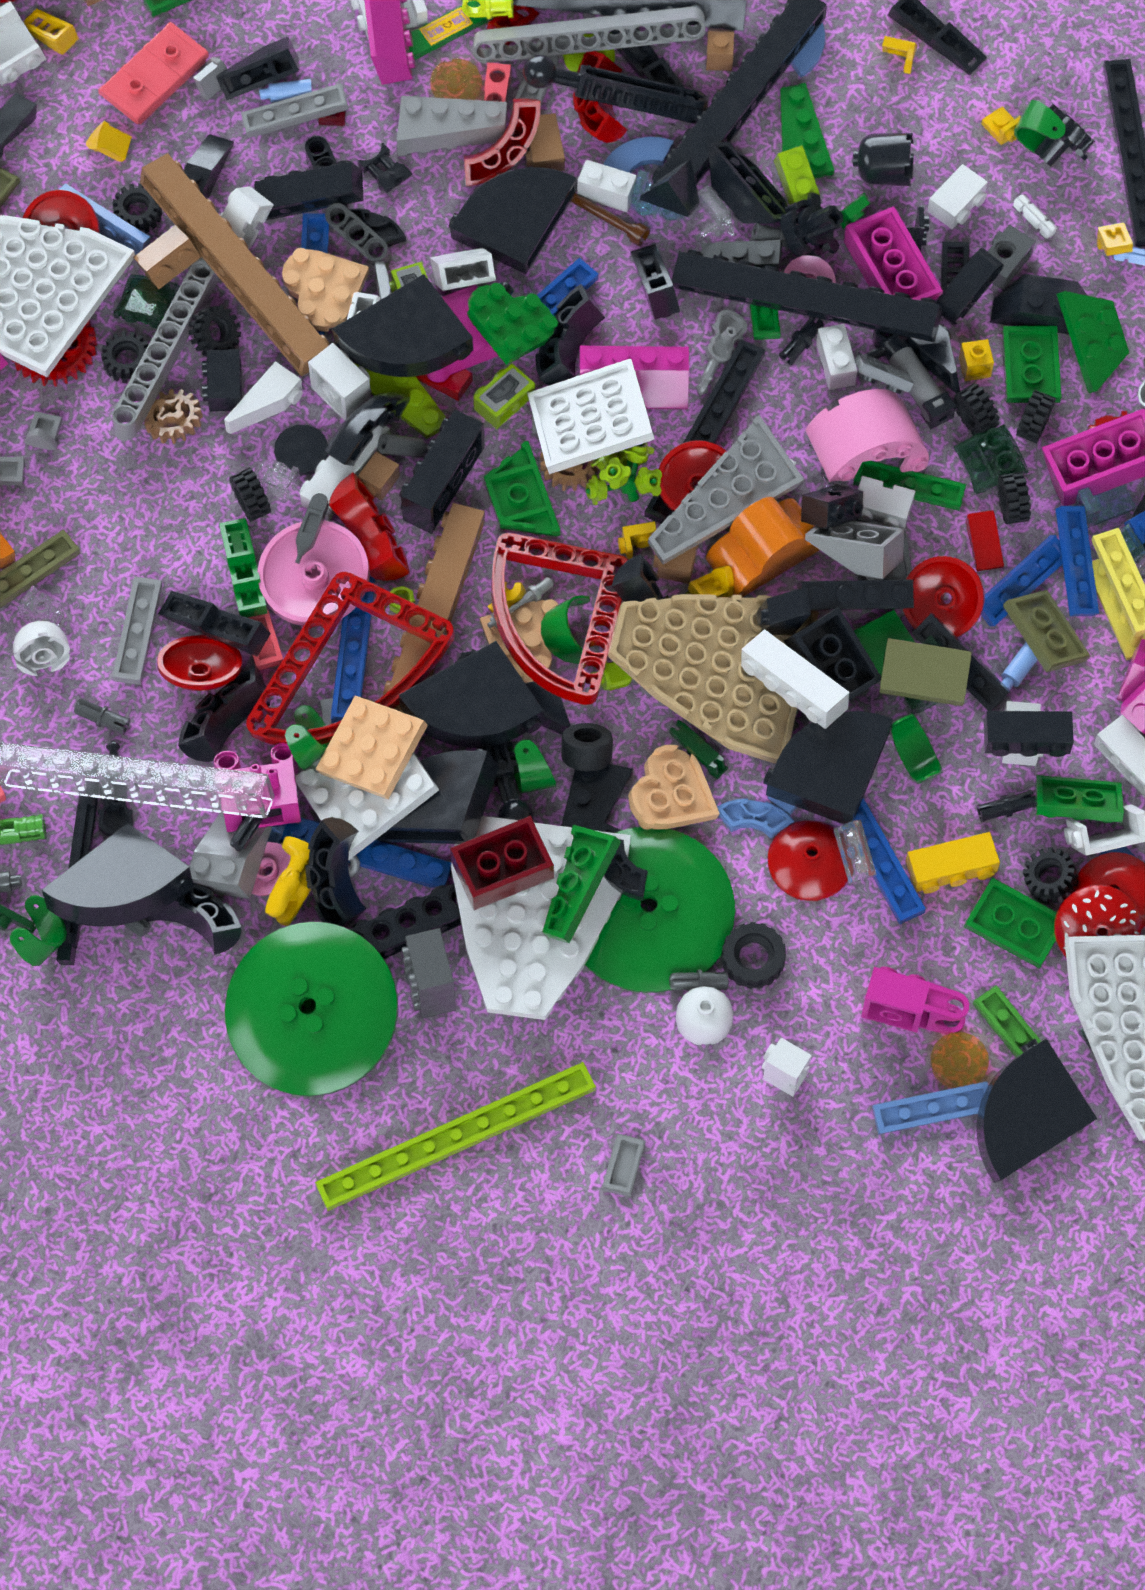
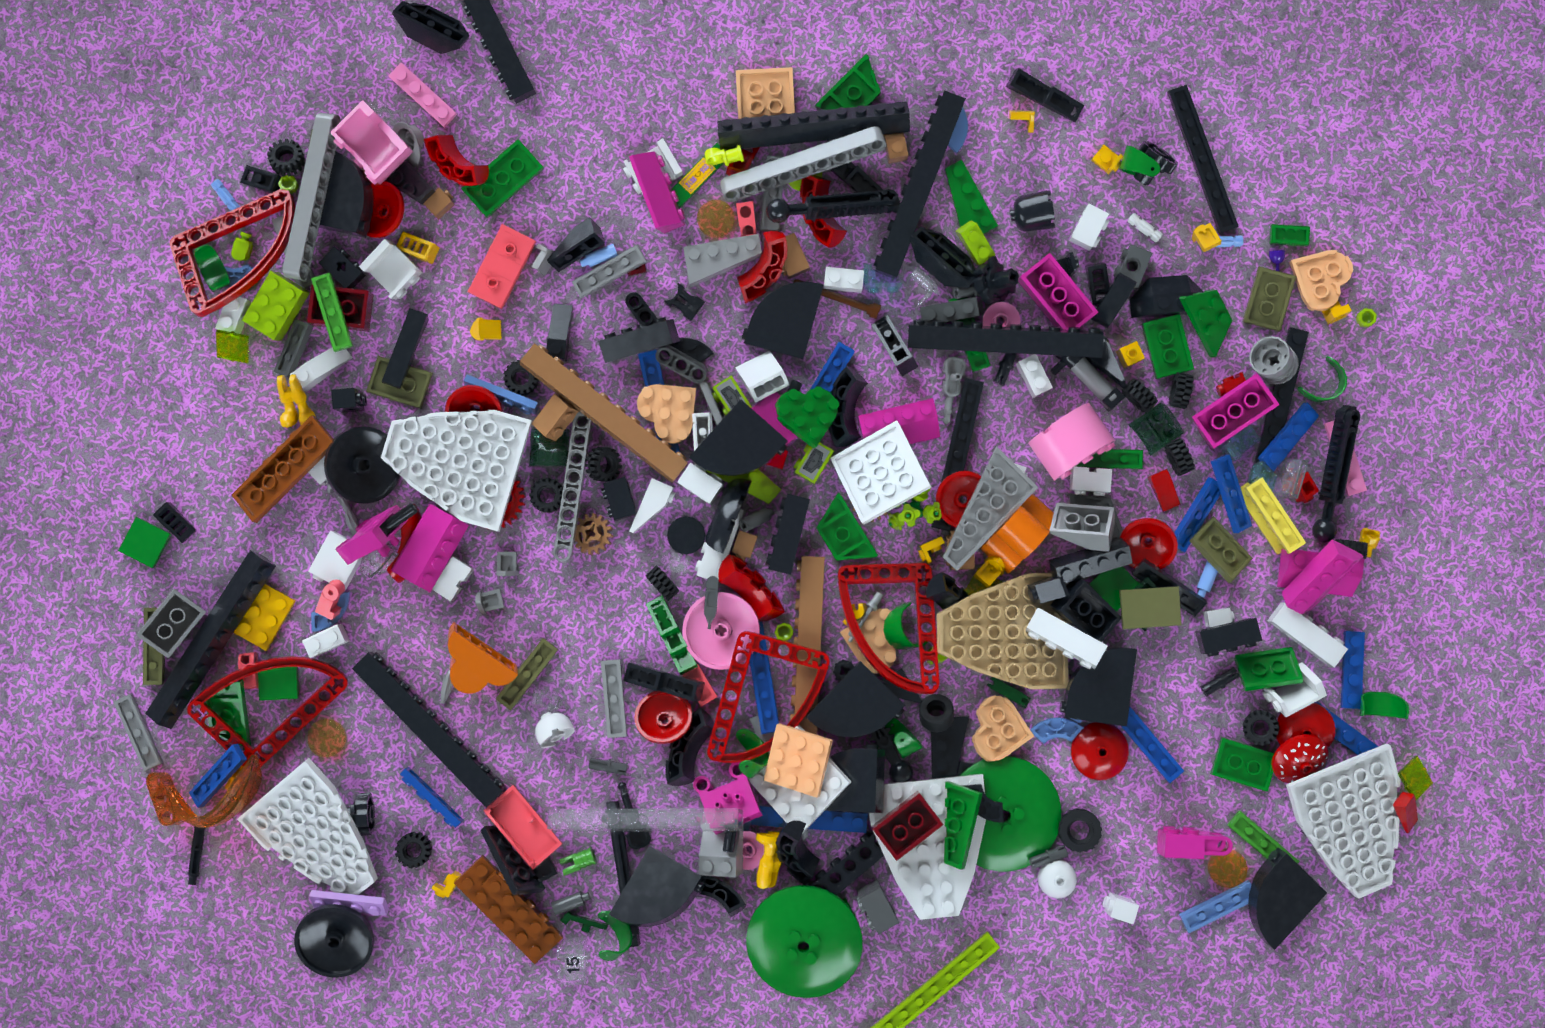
camera: 10 degrees left, 20 degrees up
(245, 211) = (598, 369): white brick -> none
(623, 1165) = (1029, 992): light grey tile -> none
(639, 152) = (857, 245): medium blue tile -> none
(674, 191) = (893, 277): black slope -> none
(832, 506) = (1060, 499): black brick -> none
(854, 210) = (1020, 257): green wing -> none
(854, 851) = (1130, 744): clear plate -> none
(874, 369) = (1073, 390): tile -> none
(915, 749) = (1156, 662): green piece -> none
(952, 863) = (1194, 733): yellow brick -> none

